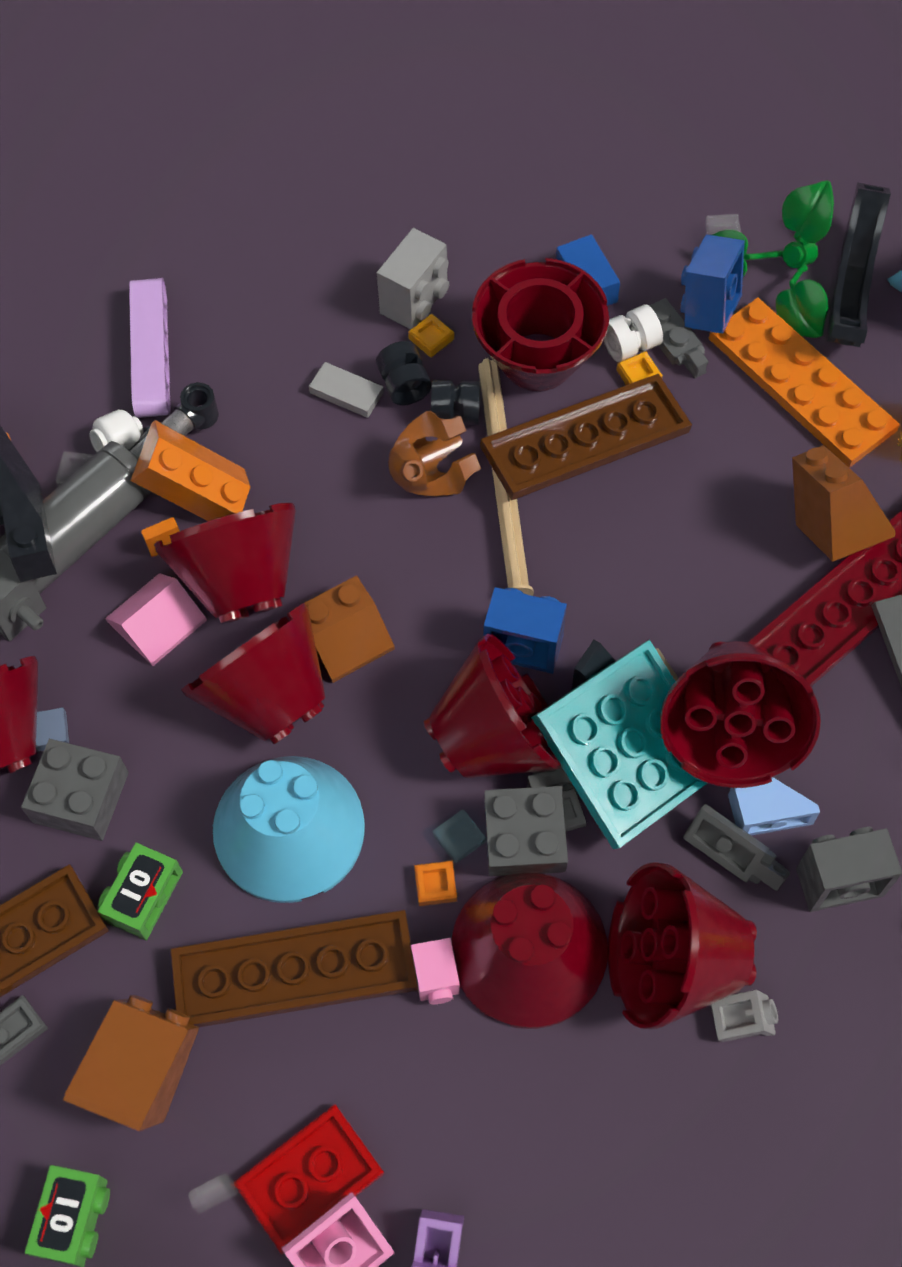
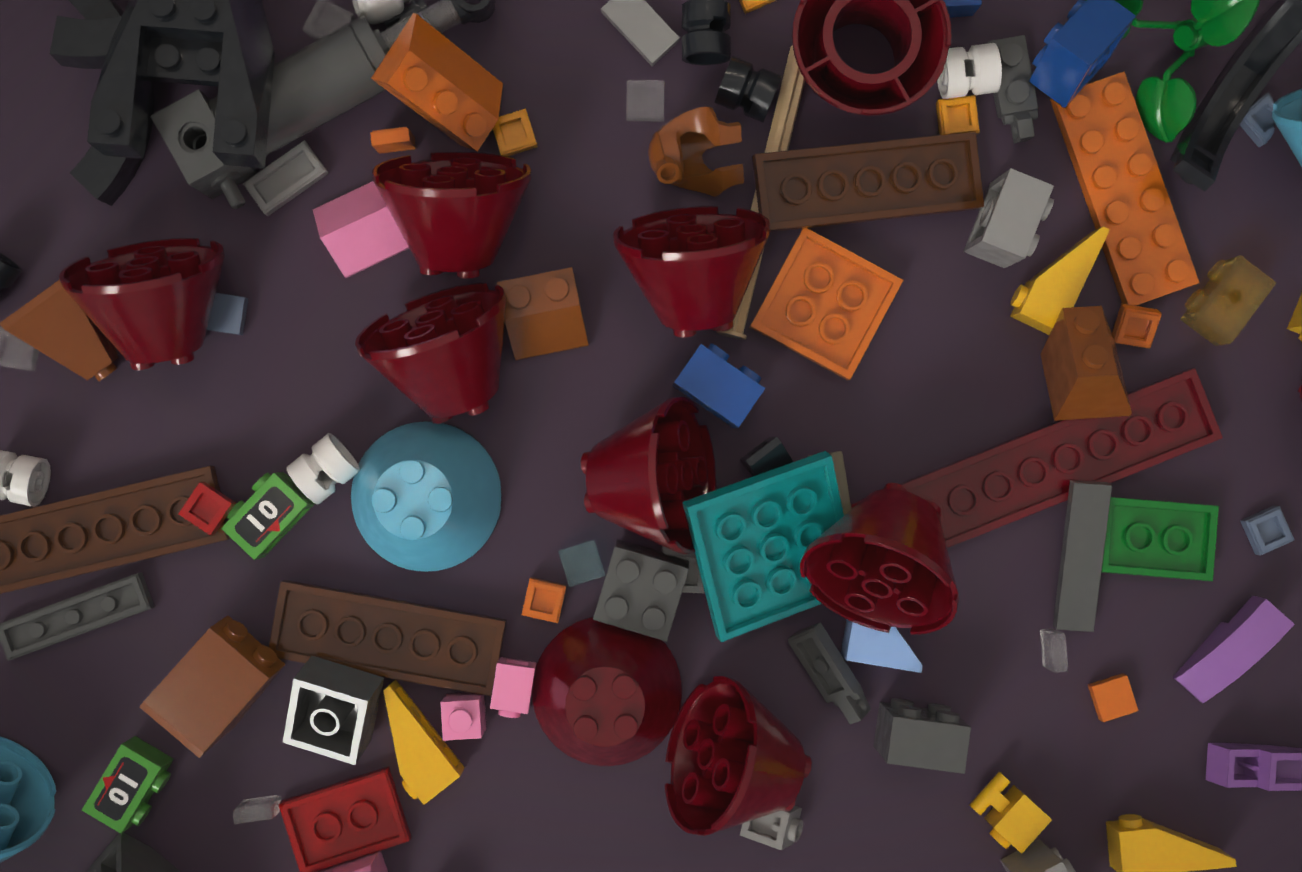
camera: 15 degrees right, 25 degrees up
(74, 601) = (285, 178): none -> light grey tile
(75, 789) = (233, 392): dark grey brick -> none
(79, 897) = (207, 508): none -> red plate
(183, 814) = (322, 469): none -> white wheel
(261, 1050) = (332, 709): none -> dark grey brick
(264, 496) = (514, 133): none -> light orange tile
(369, 1073) = (420, 751): none -> yellow slope
(371, 442) = (645, 100): none -> clear tile
(396, 1015) = (463, 716): none -> bright pink brick
(466, 539) = (694, 263): none -> dark red cone
(592, 542) = (826, 303): none -> orange plate
(717, 422) = (1010, 219): none -> light grey brick
(775, 472) = (1058, 284): none -> yellow slope
(869, 469) = (1136, 325): none -> orange tile
(884, 298) = (1259, 121): none -> sand blue tile

